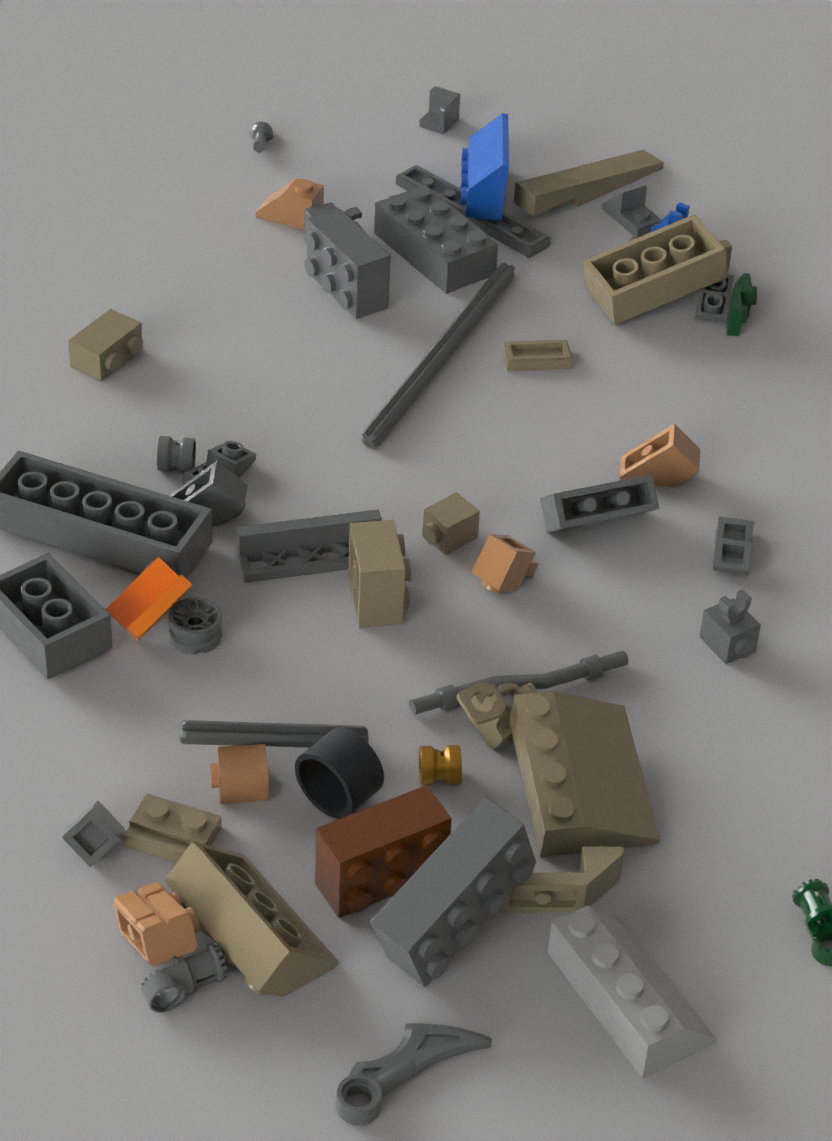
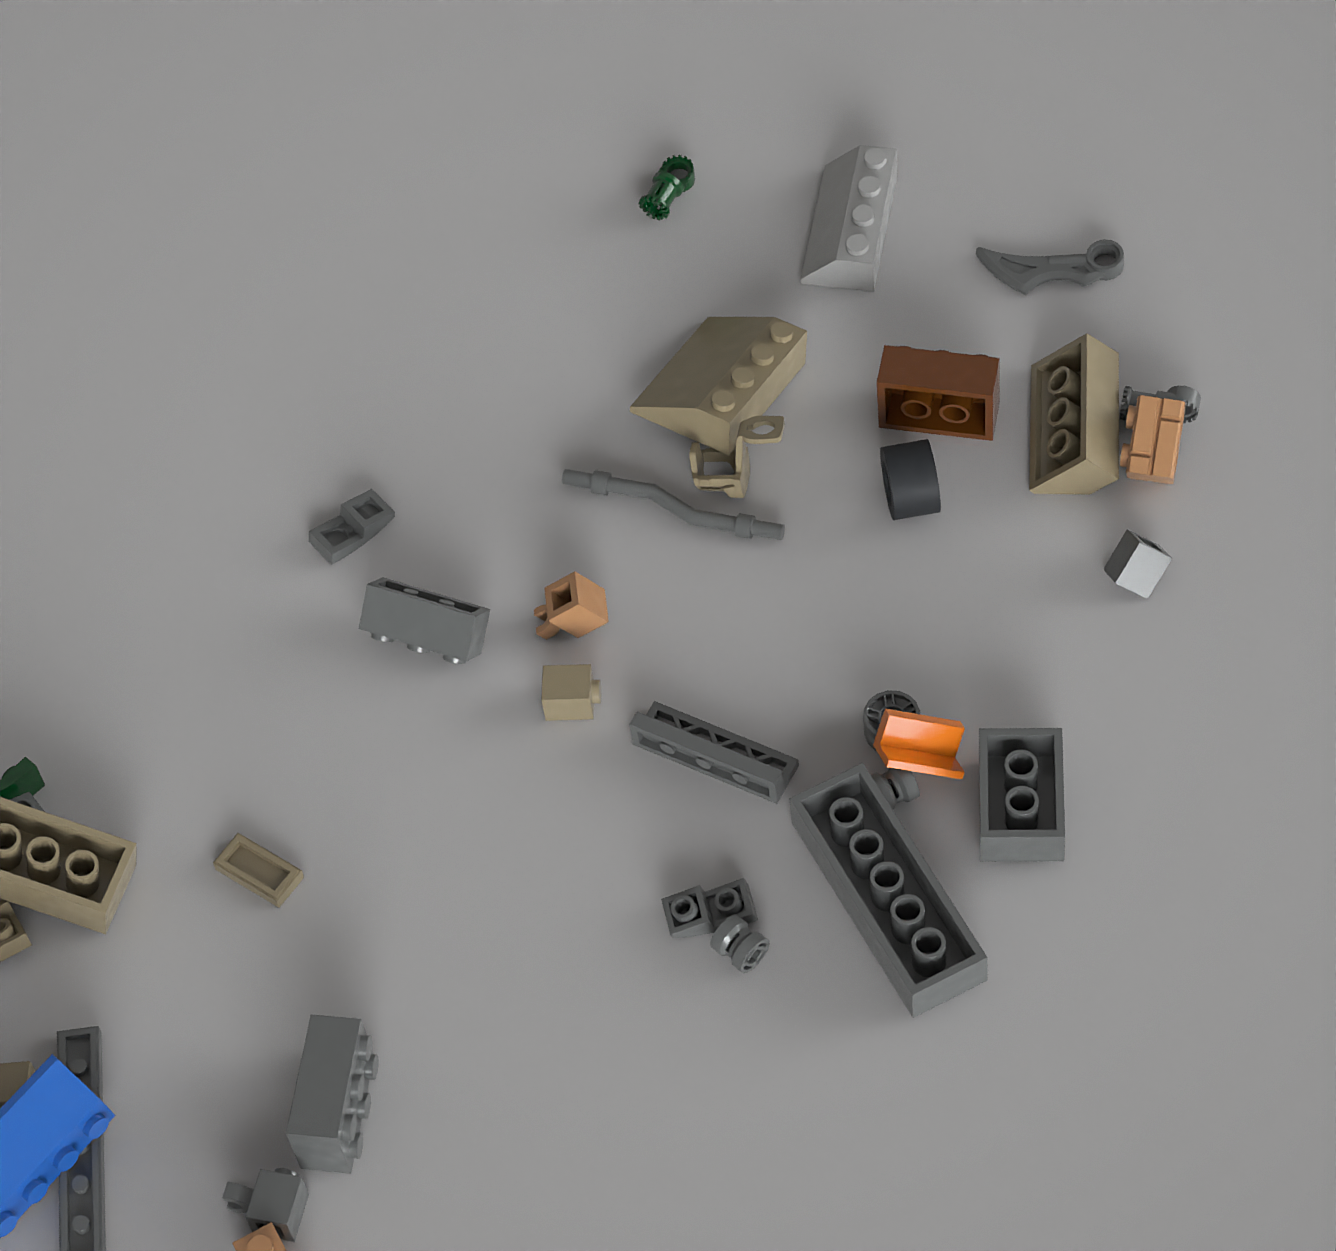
camera: 130 degrees left, 15 degrees up
(105, 344) = (680, 1159): dark tan brick -> none
(169, 828) = (1068, 541): dark tan plate -> none
(217, 490) = (763, 861): dark grey slope -> none
(241, 773) = (975, 547): medium nougat brick -> none
(253, 733) = (931, 545): dark grey axle -> none
(378, 573) = (699, 651): dark tan brick -> none
(435, 238) = (184, 1099): dark grey brick -> none
(437, 356) = (343, 935): dark grey axle -> none
(440, 765) = (815, 460): pearl gold wheel -> none
(455, 892) = (928, 306): dark grey brick -> none
(568, 891) = (830, 309): dark tan slope -> none
(667, 456) = (310, 645): medium nougat slope -> none
(730, 628) = (458, 438): dark grey brick -> none

